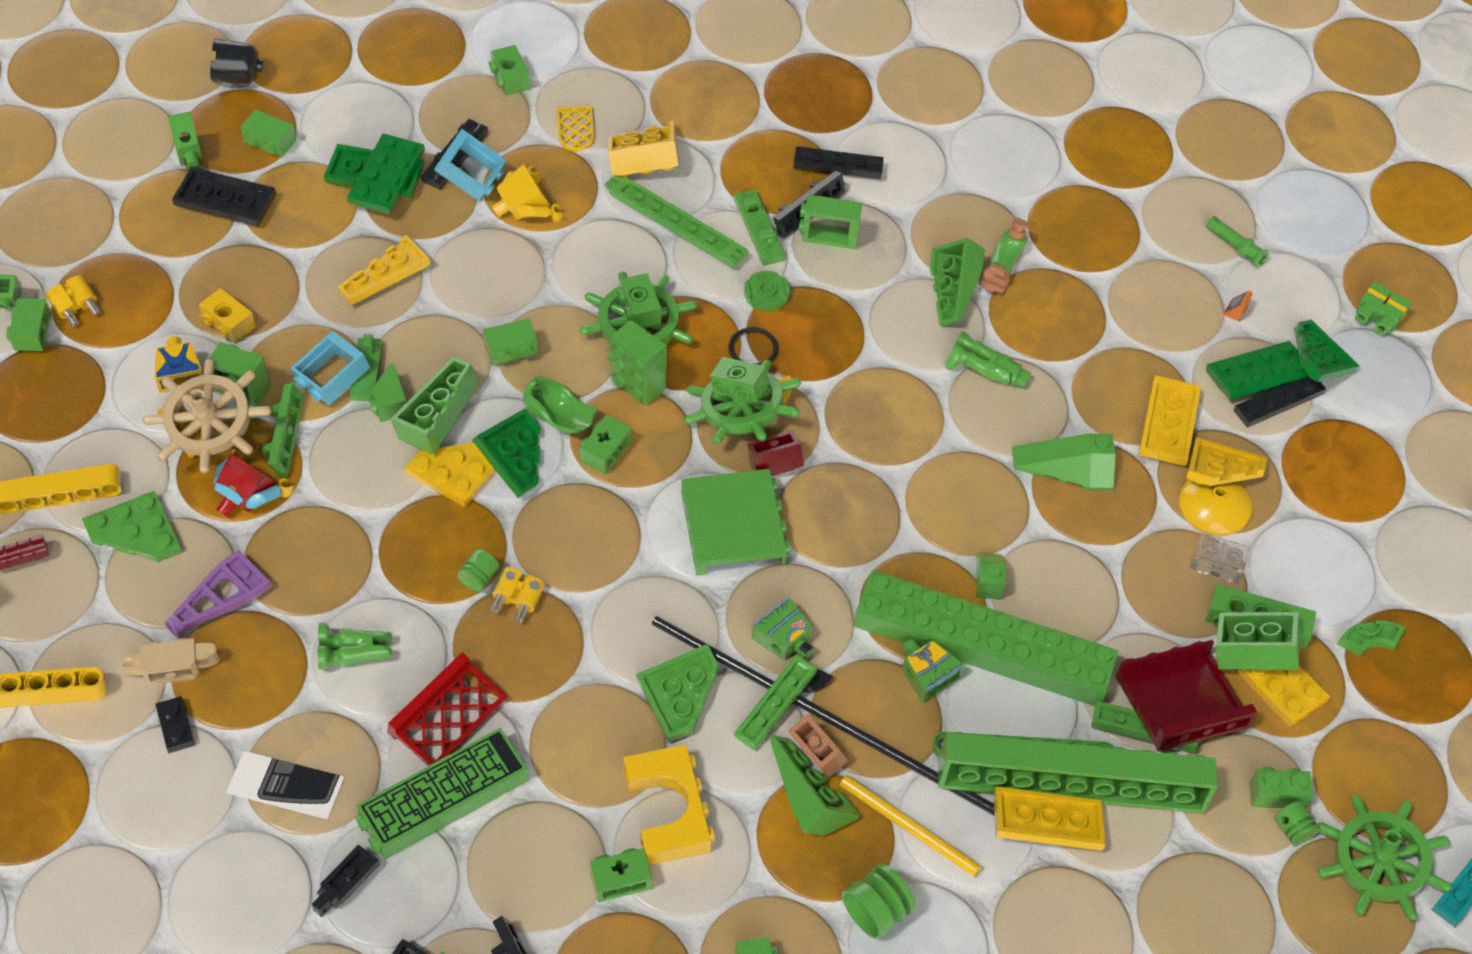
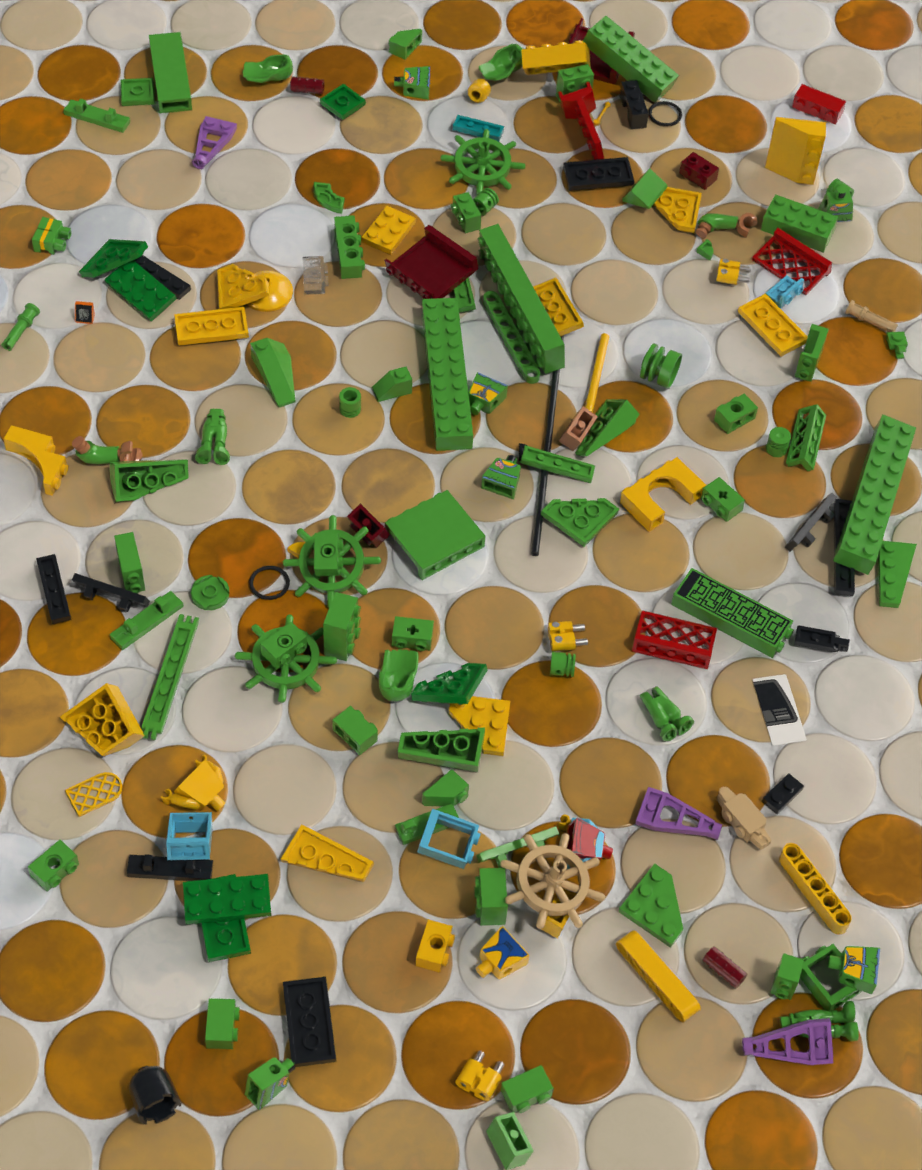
camera: 115 degrees left, 0 degrees up
(979, 512) = (350, 402): none -> bright green piece
(1035, 202) = (40, 451): none -> yellow arch
(1258, 640) = (376, 235): bright green brick -> none

